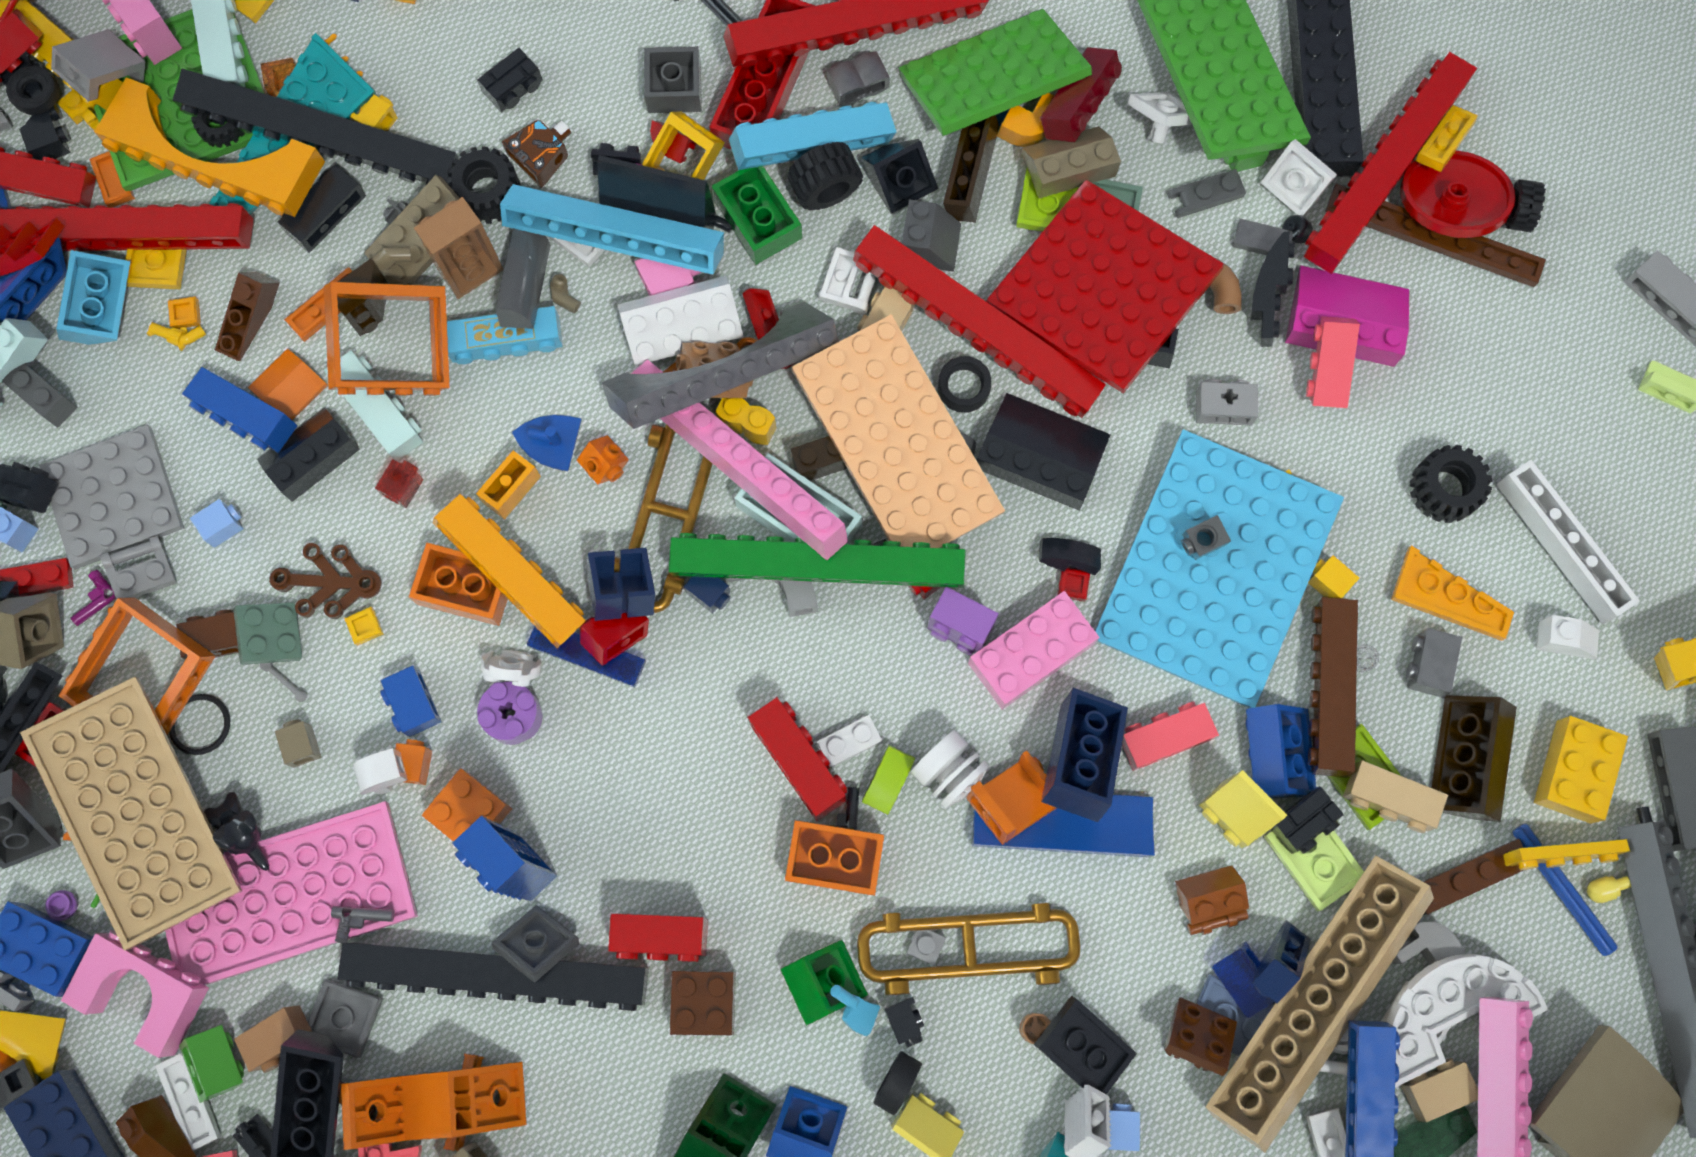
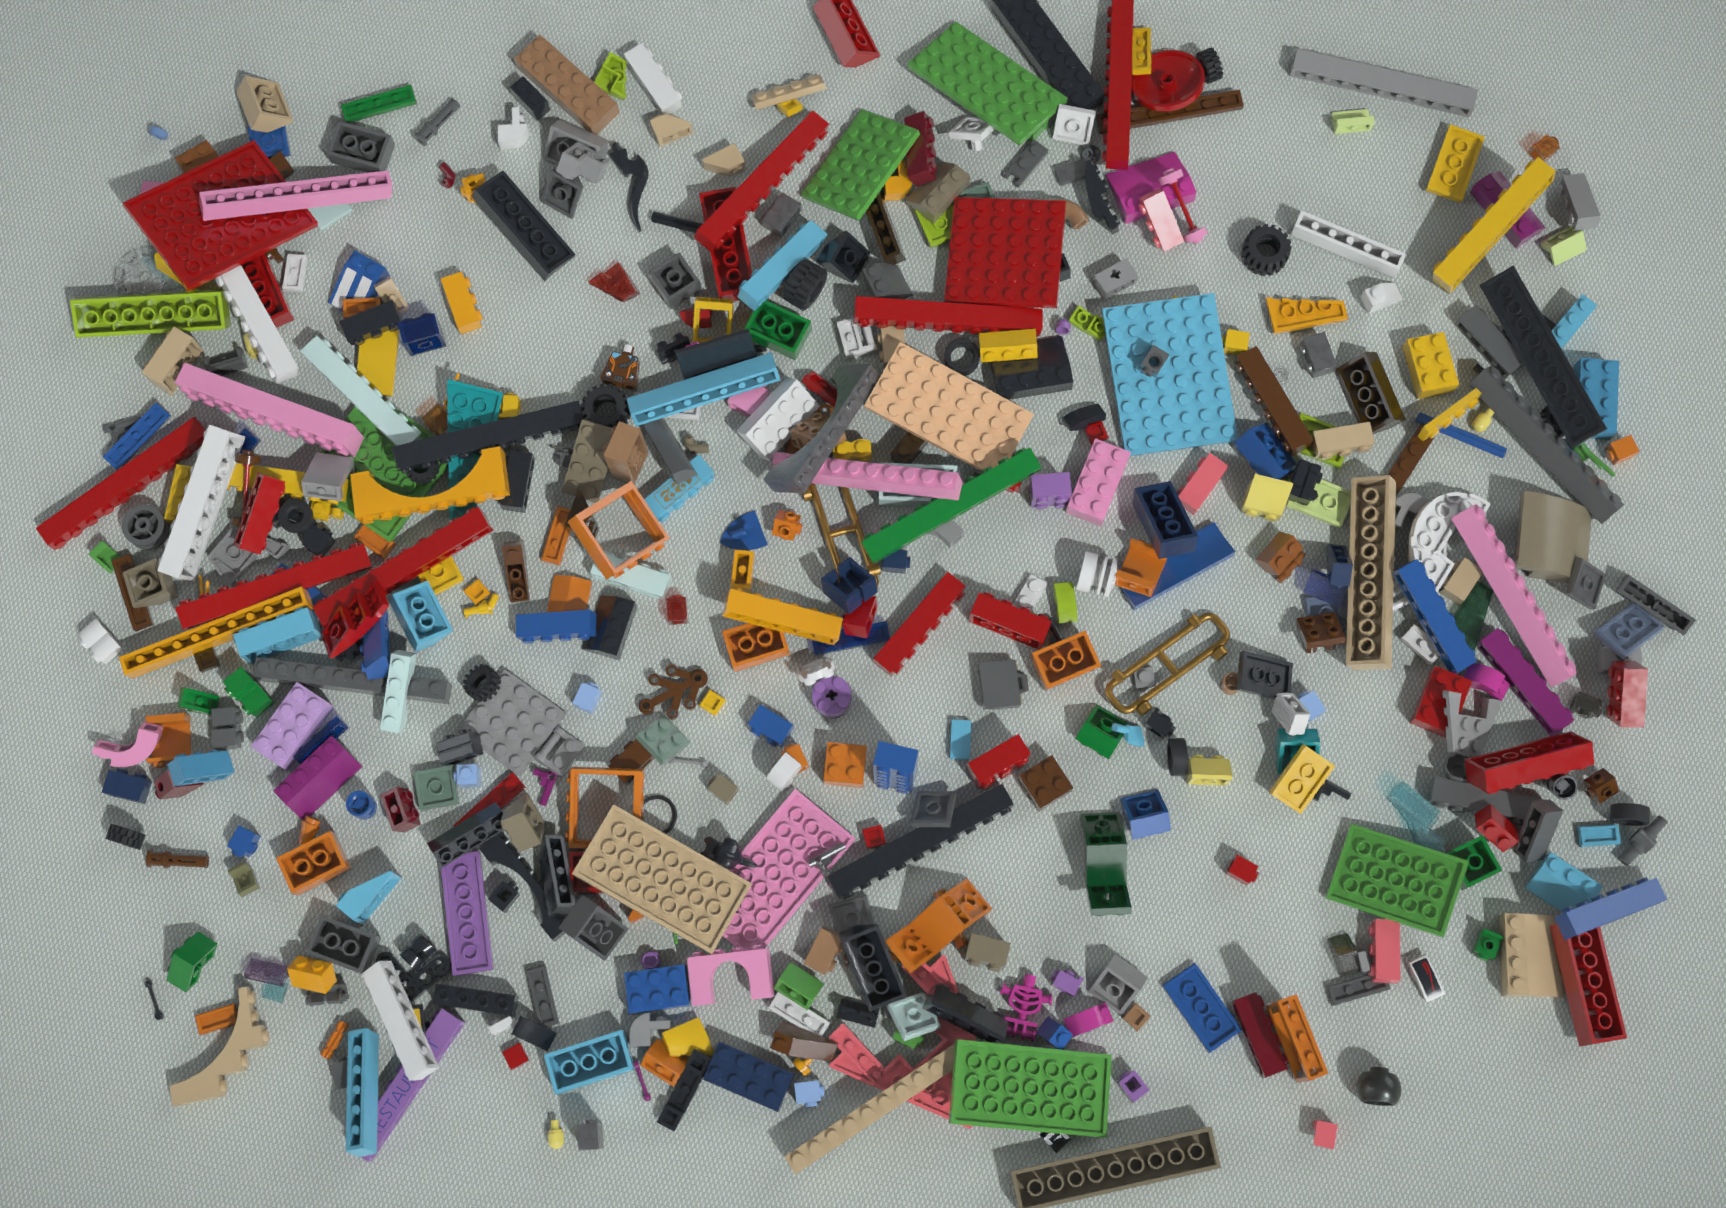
camera: 30 degrees left, 0 degrees up
(105, 425) = (489, 687): none -> black tyre
(390, 255) = (584, 483): dark tan arm -> none
(441, 929) = (874, 836): none -> red plate
(510, 80) = (576, 338): black brick -> none
(604, 44) = (616, 283): none -> clear red slope
(636, 873) = (960, 739): none -> medium azure tile
(682, 690) = (919, 624): none -> red brick
(733, 835) = (1000, 684): none -> dark grey piece
(1030, 404) = (1008, 345): none -> yellow brick
(1119, 423) = (1063, 326): none -> medium lavender hinge
(1154, 438) = (1087, 323): none -> lime slope
(1381, 314) = (1195, 234): none -> bright pink axle

